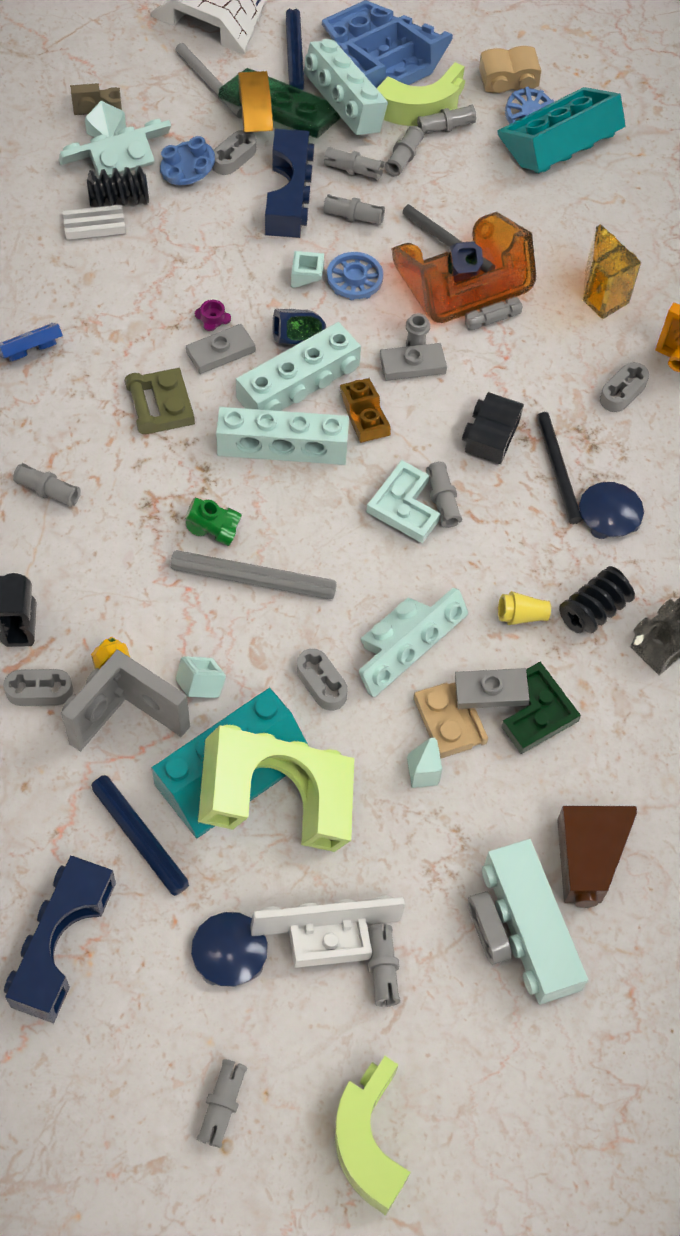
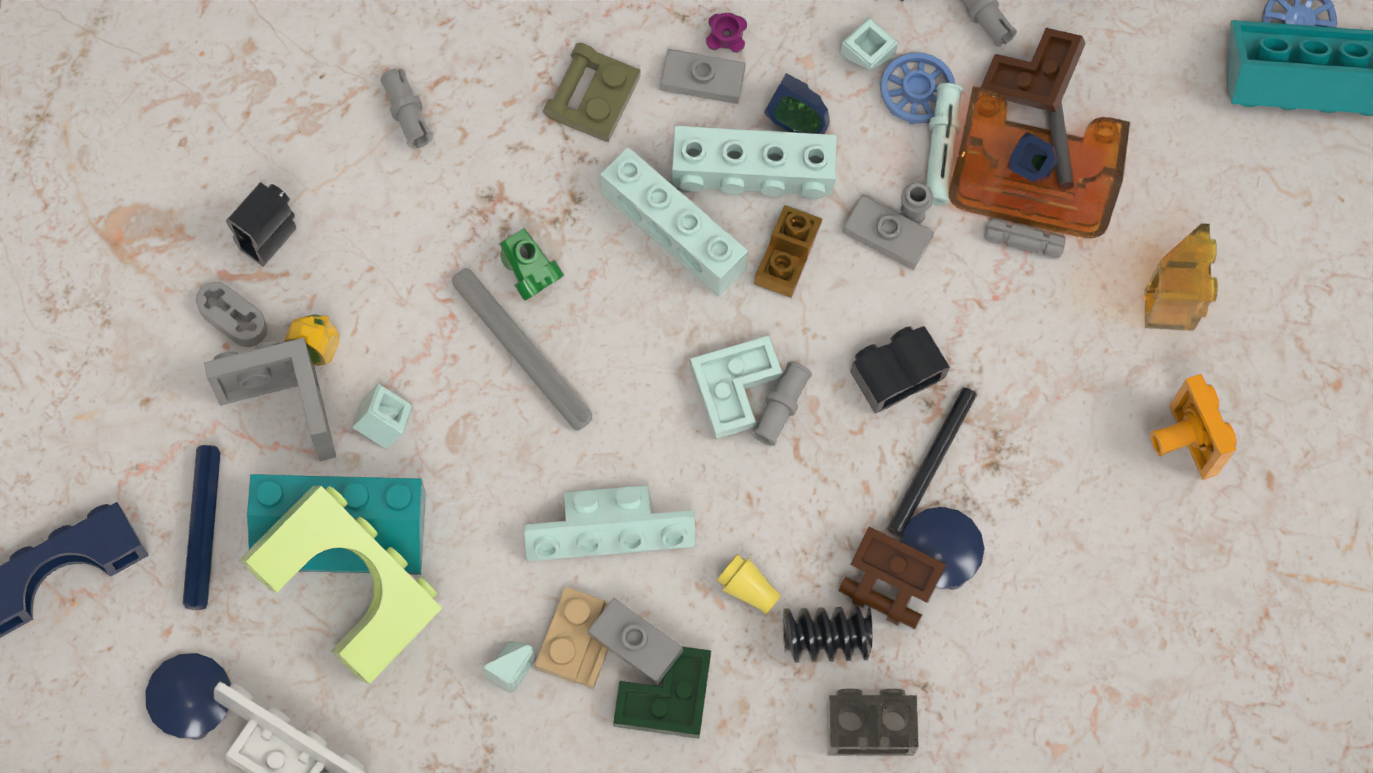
camera: 40 degrees right, 10 degrees up
(327, 674) = (483, 504): light grey beam -> none
(393, 282) = (944, 130): none -> light aqua pin
(426, 218) = (1043, 79): none -> reddish brown plate
(601, 532) = (897, 565): none -> reddish brown plate
(629, 390) = (1089, 433): light grey beam -> none

